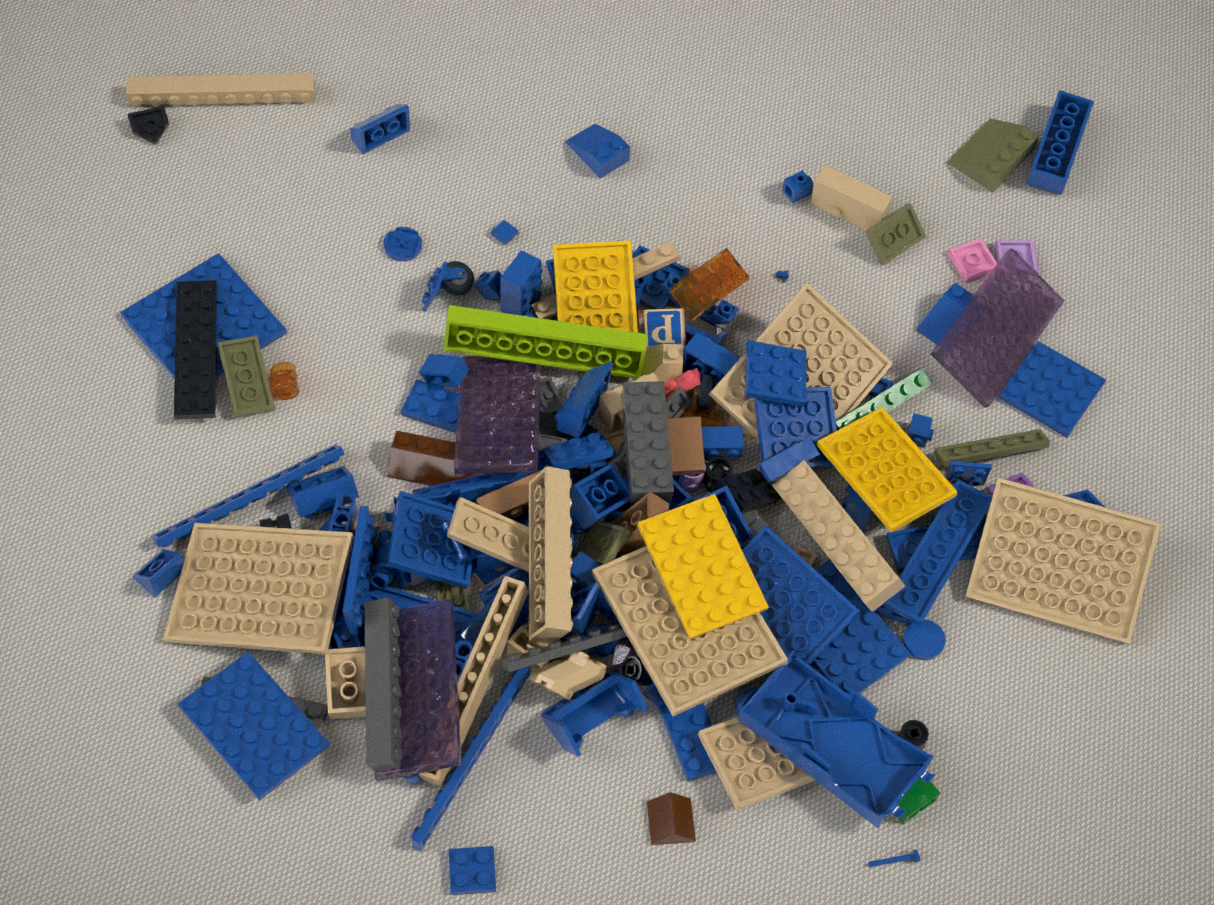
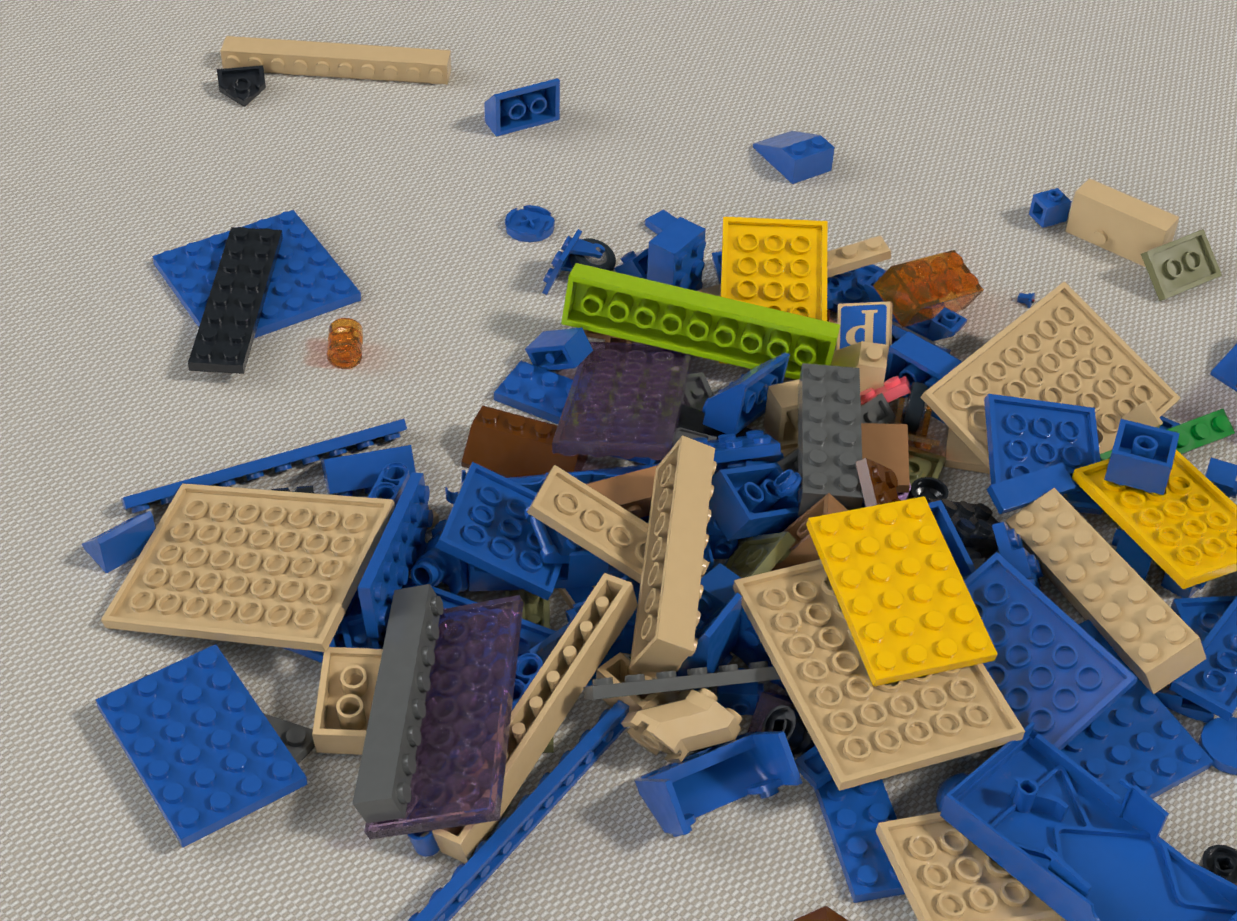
camera: 10 degrees right, 15 degrees down
(246, 376) = (295, 333): olive plate -> none
(621, 483) = (787, 483): none -> blue plate
(684, 482) = (877, 483): none -> reddish brown plate
(722, 442) = (937, 460): blue brick -> none
(775, 373) = (1018, 378): blue plate -> none
(781, 524) = (1012, 550): none -> blue plate
(863, 430) = (1142, 456): none -> blue brick
(864, 390) = (1144, 414): none -> tan slope

